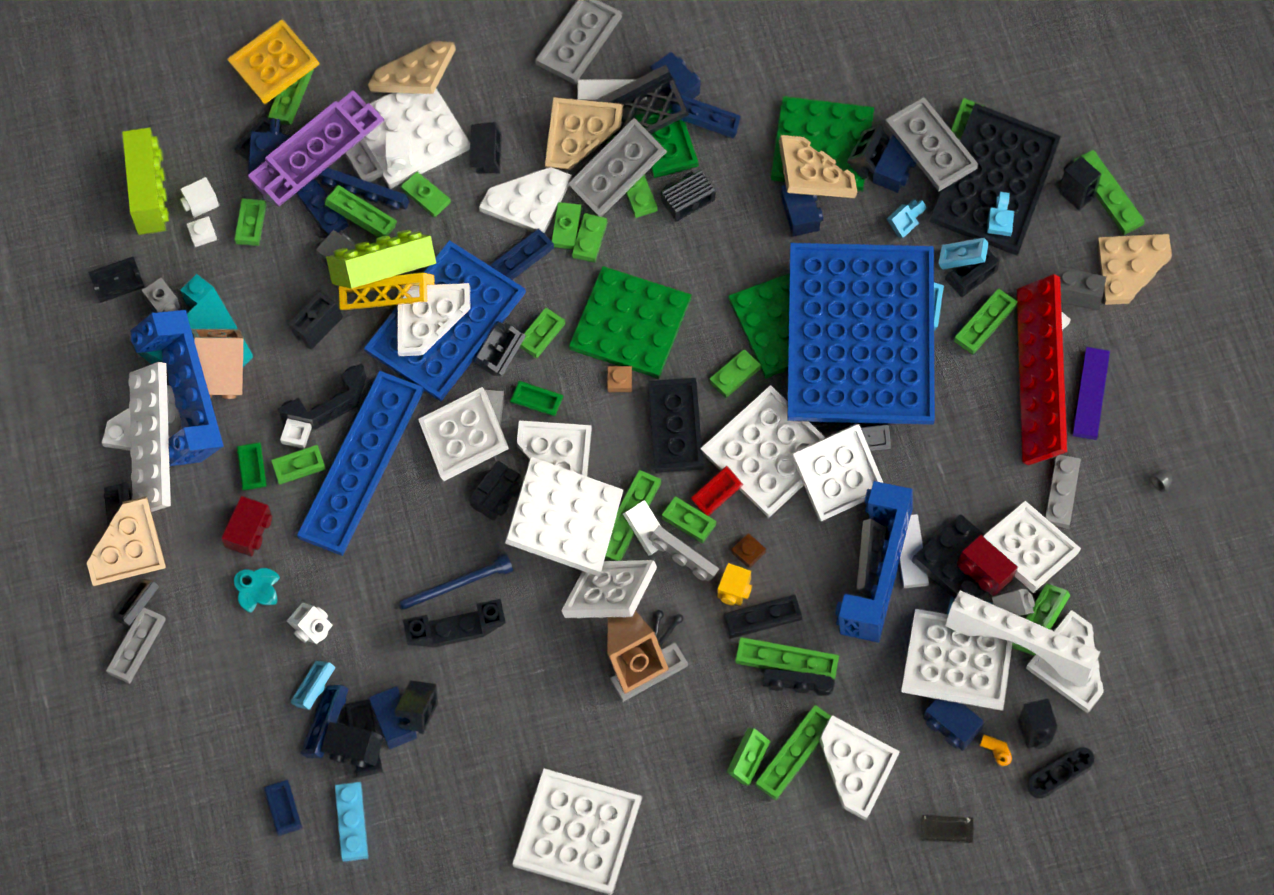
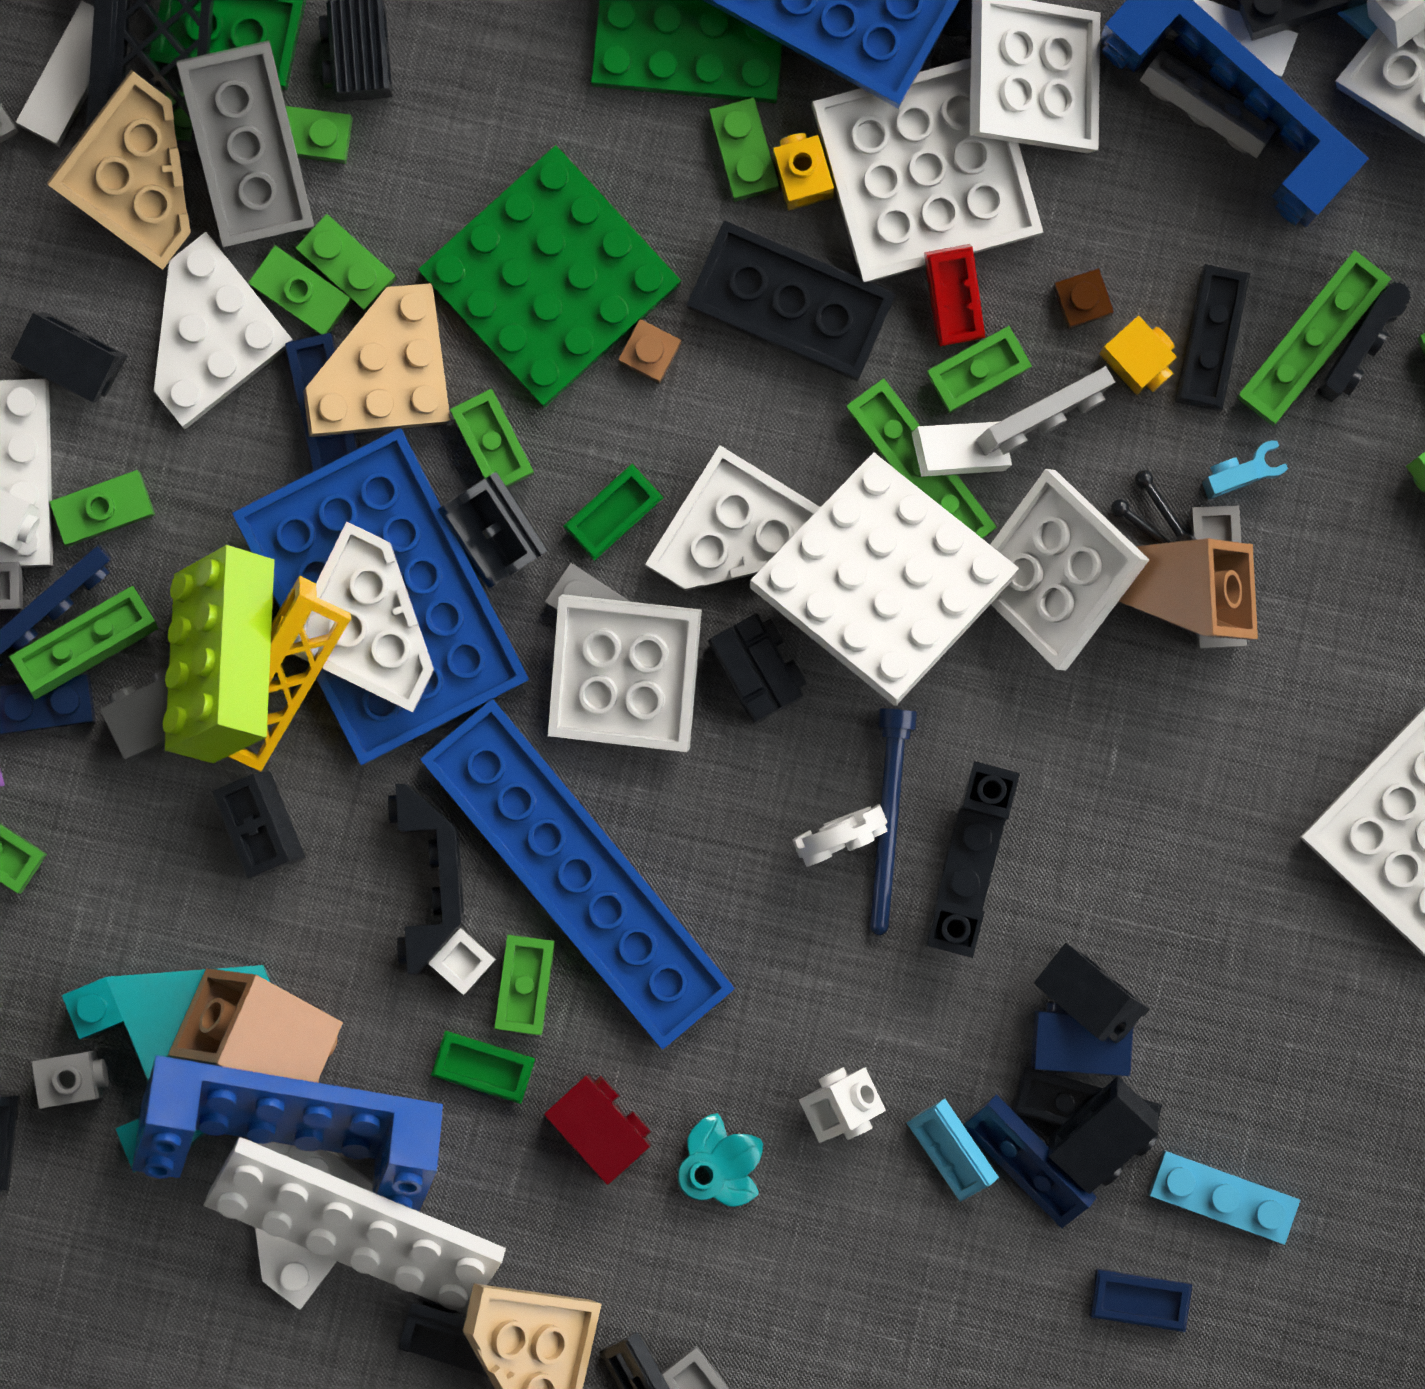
camera: 60 degrees left, 20 degrees up
(436, 560) = (851, 829): none -> white plate
(548, 272) = (384, 370): none -> tan plate
(701, 655) = (1231, 476): none -> medium azure plate
(736, 398) = (802, 170): none -> yellow brick

